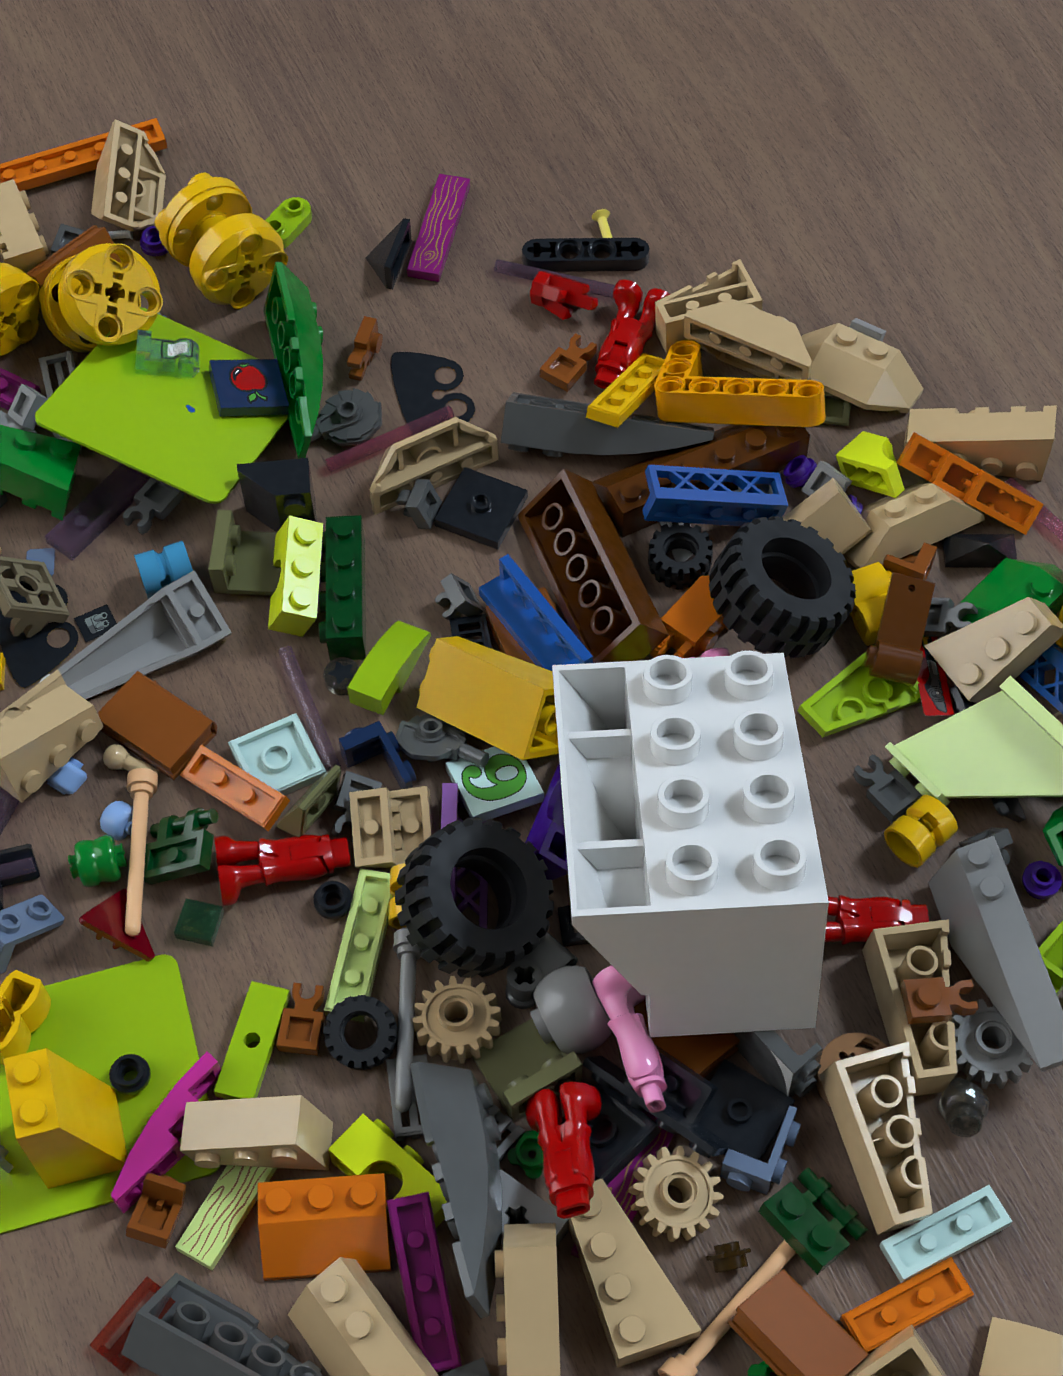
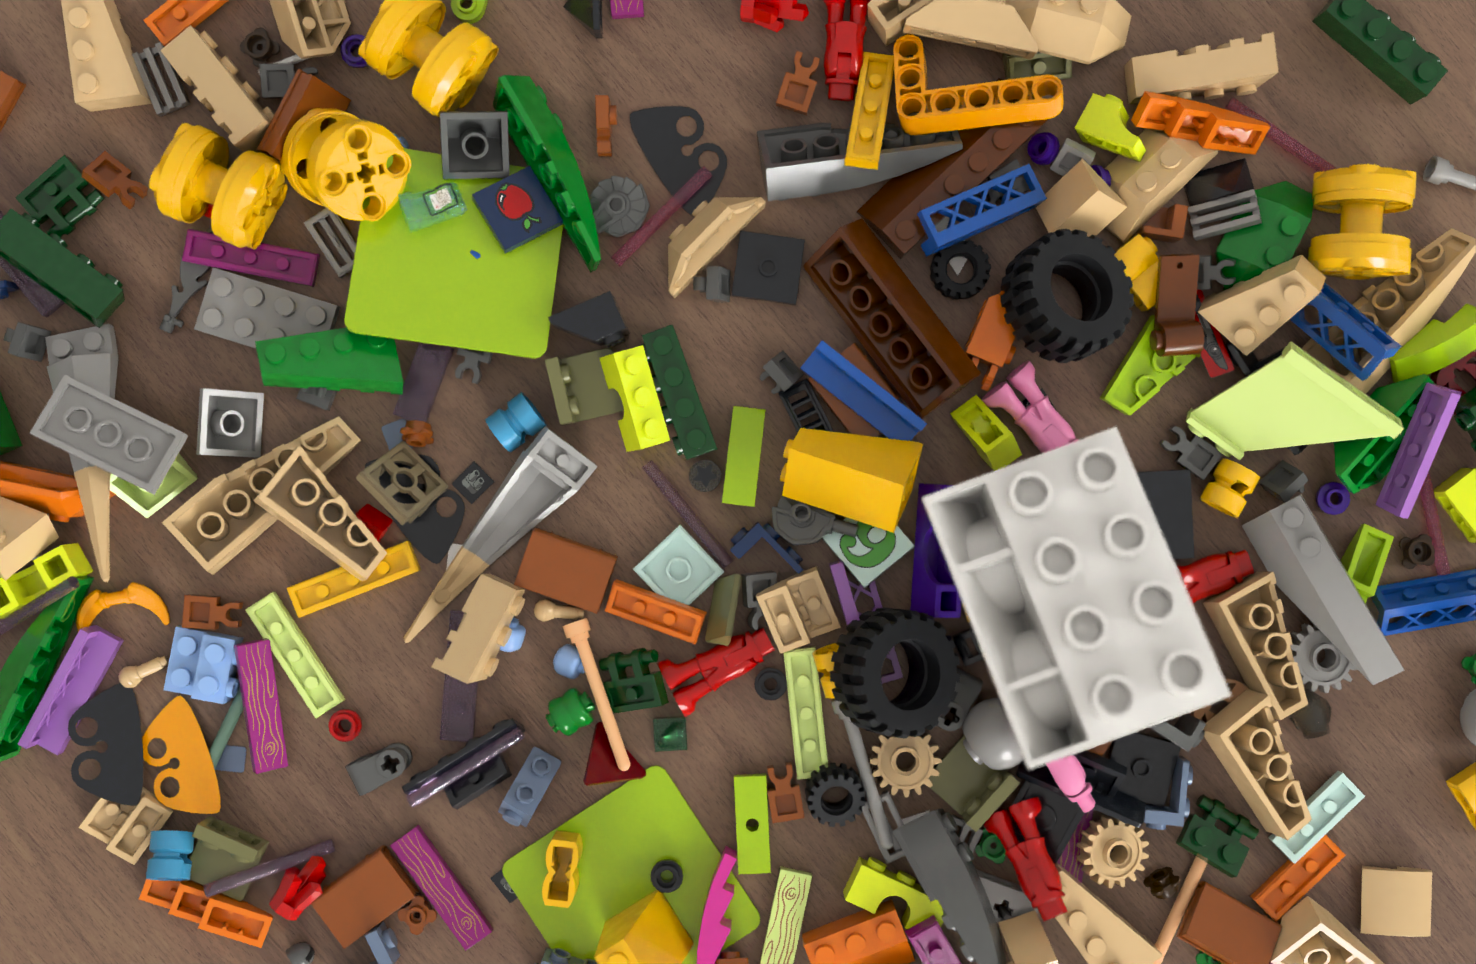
camera: 15 degrees left, 30 degrees up
(25, 406) = (321, 287): light grey tile -> none
(60, 557) = (417, 433): none -> dark orange plate
(68, 214) = (257, 38): none -> dark brown plate
(232, 322) = (474, 144): none -> dark grey slope
(257, 1133) = (787, 909): tan wedge -> none
(844, 837) = (1171, 503): none -> black piece
(930, 1001) = (1279, 651): dark orange plate -> none
(976, 570) = (1222, 203): none -> light grey tile

